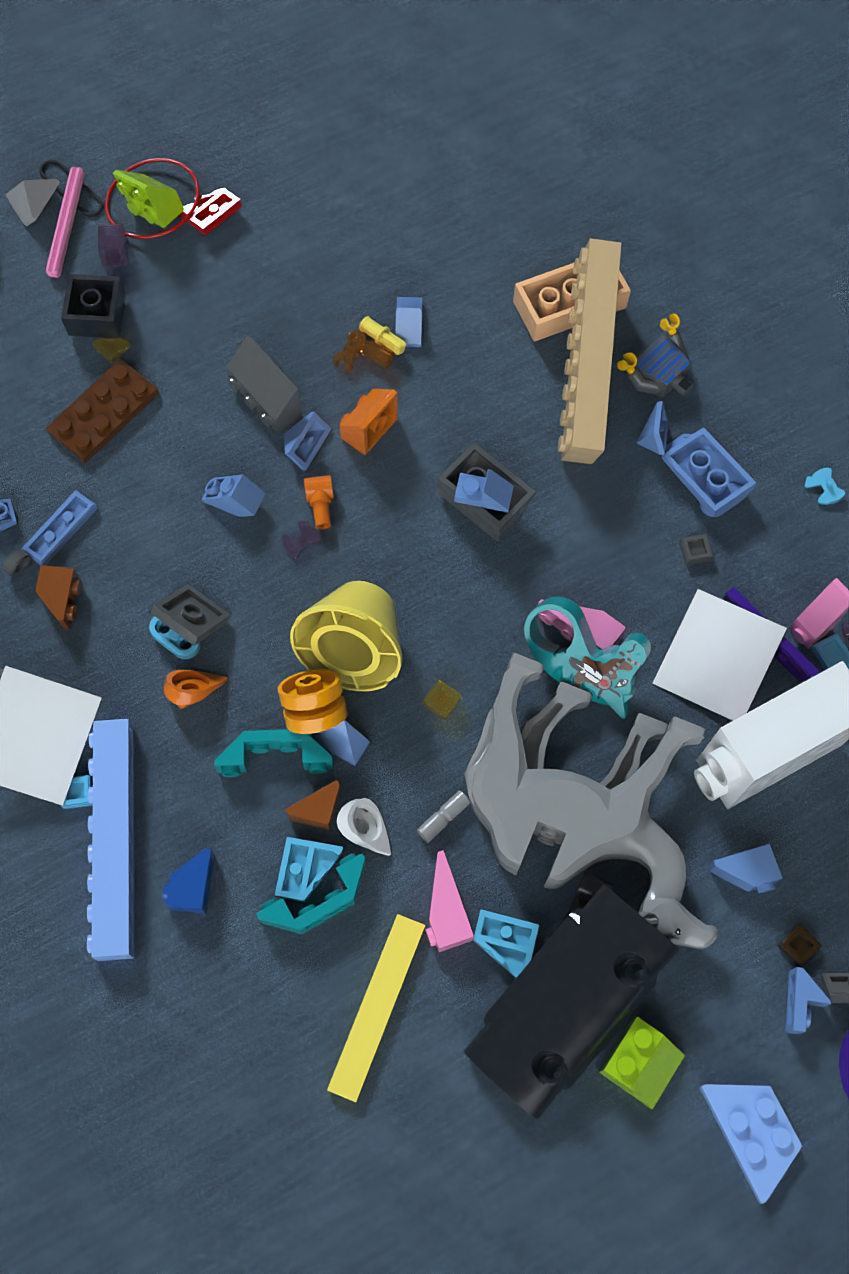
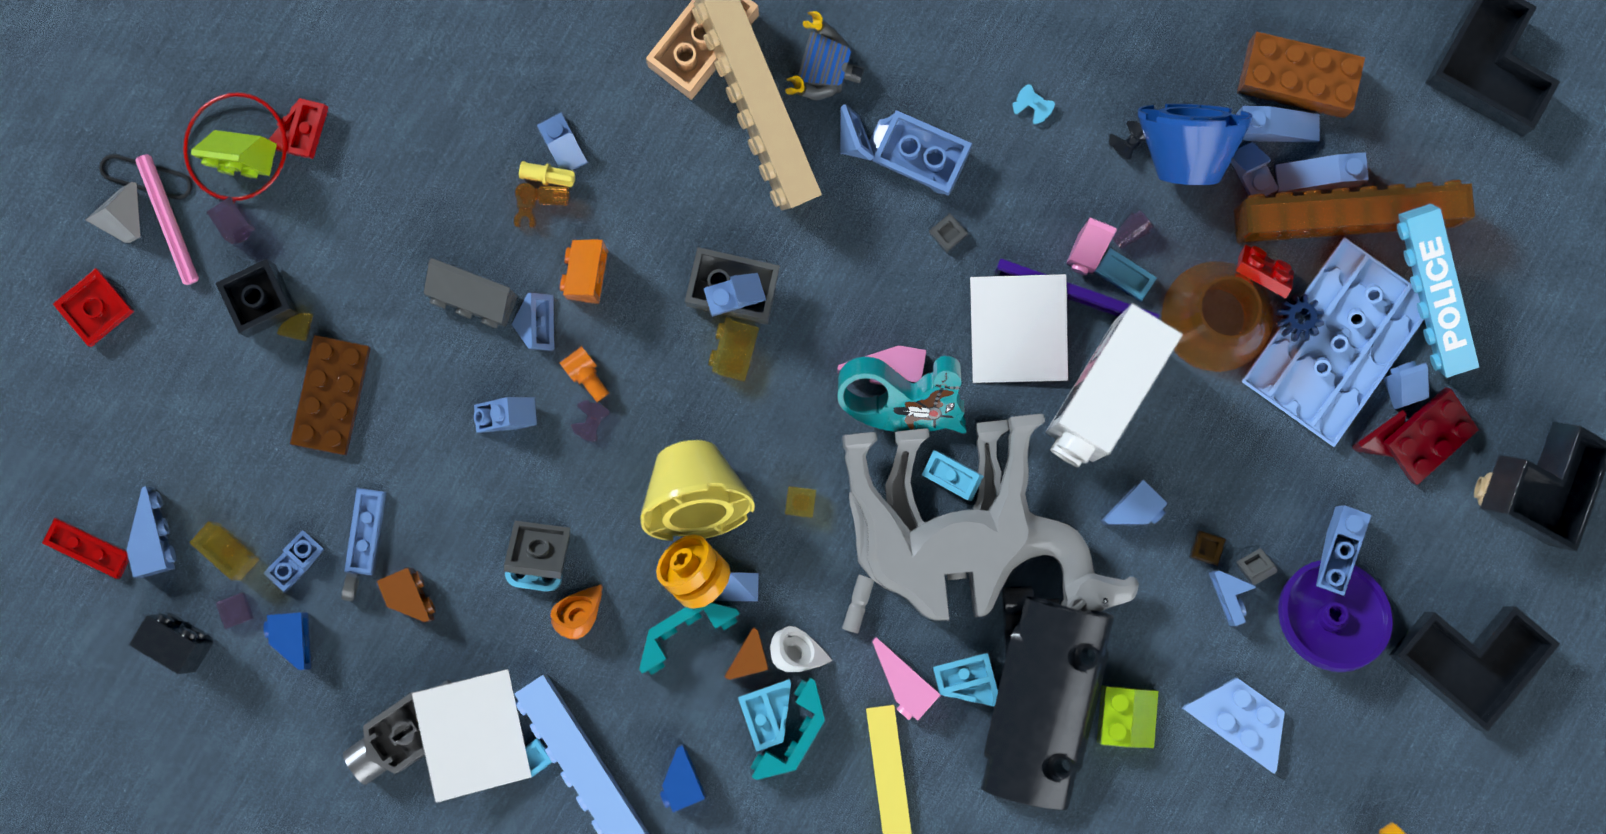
camera: 25 degrees left, 15 degrees up
(456, 544) = (734, 349): none -> clear yellow bracket
(592, 747) = (952, 475): none -> medium azure plate

